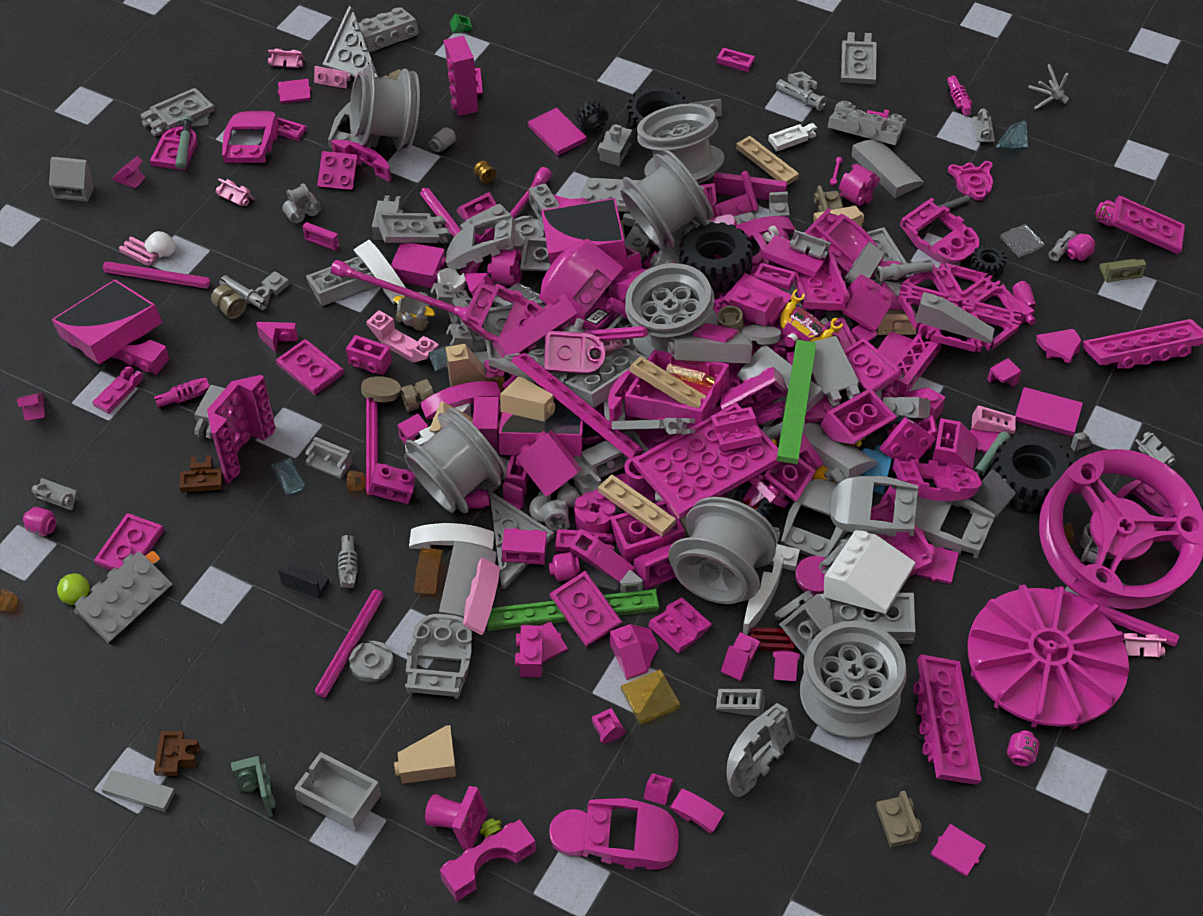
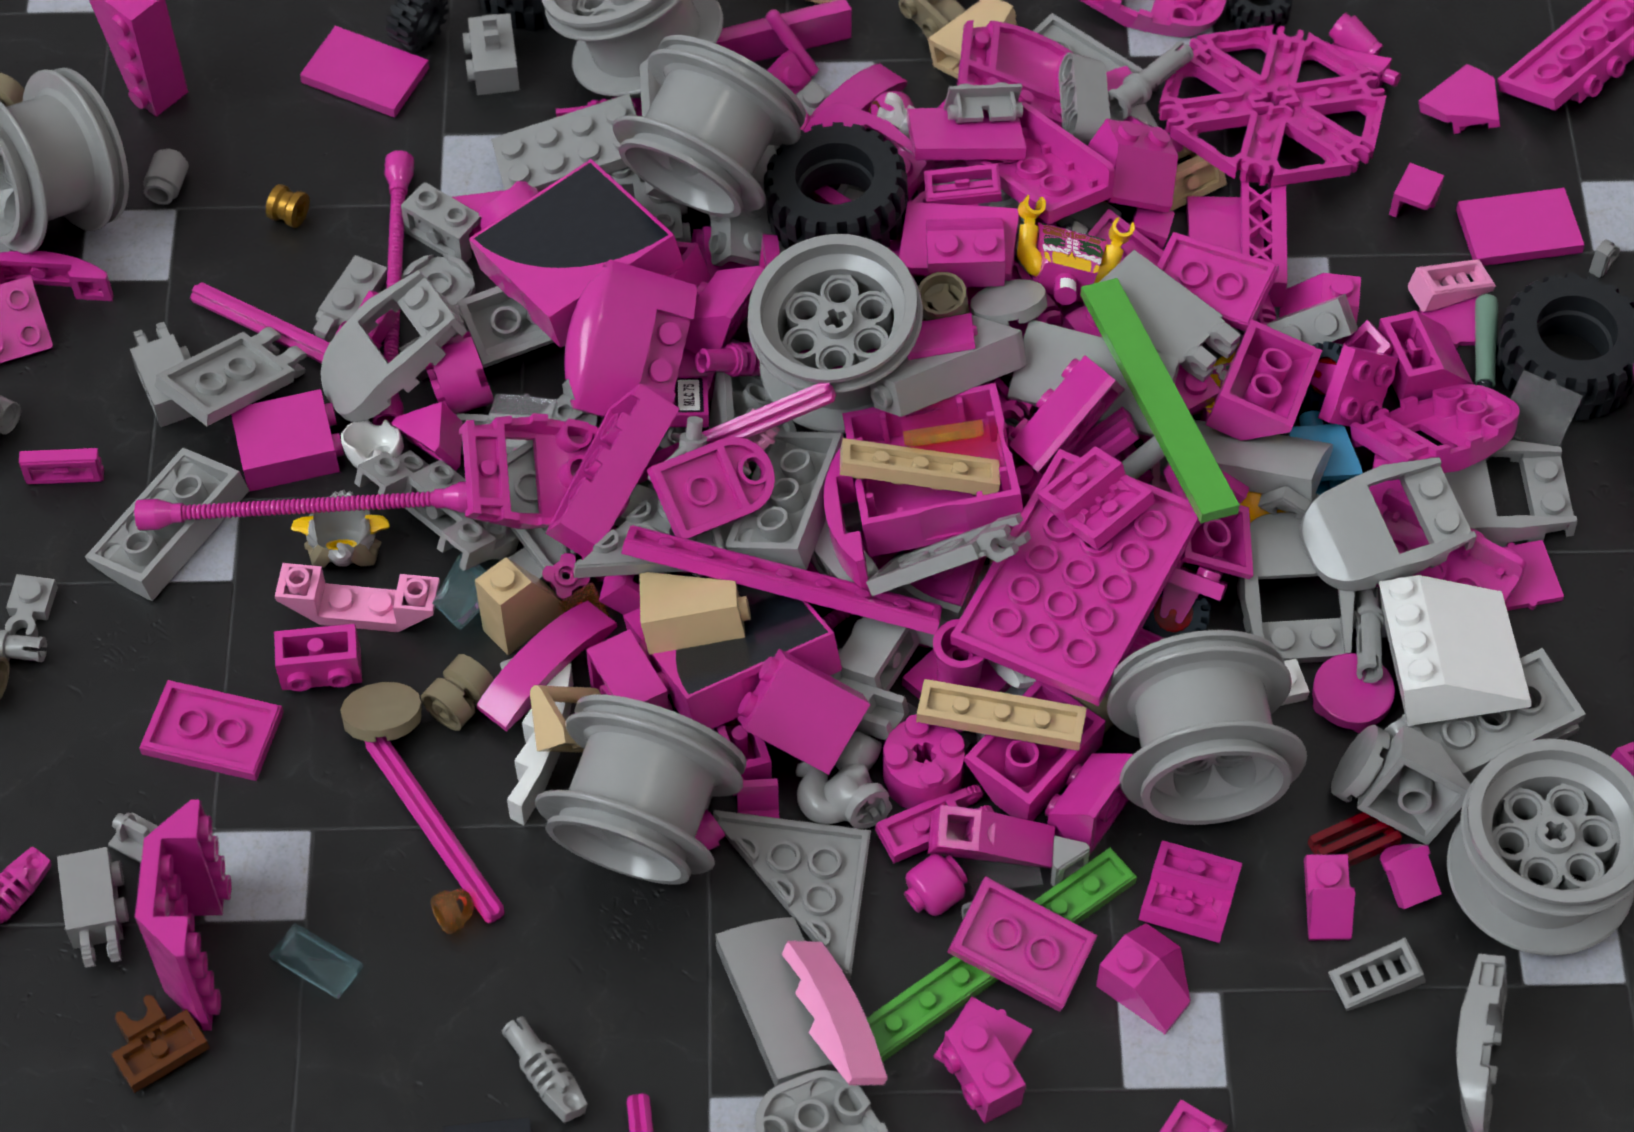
camera: 30 degrees left, 5 degrees up
(274, 331) = (97, 697): dark pink slope -> none
(328, 458) = (373, 890): light grey hinge -> none
(378, 266) = (221, 477): white slope -> none
(392, 483) = (529, 881): dark pink brick -> none
(410, 428) = (493, 762): dark pink panel -> none
(427, 570) = (703, 1011): clear orange slope -> none
(447, 533) = (692, 928): white slope -> none
(476, 206) = (315, 280): dark pink slope -> none
(524, 546) = (846, 882): dark pink brick -> none
(650, 697) = (1226, 1045): clear yellow tile -> none
(761, 601) = (1298, 801): white slope -> none
(778, 204) = (850, 48): light grey bracket -> none
(946, 316) = (1279, 132): light grey wedge -> none

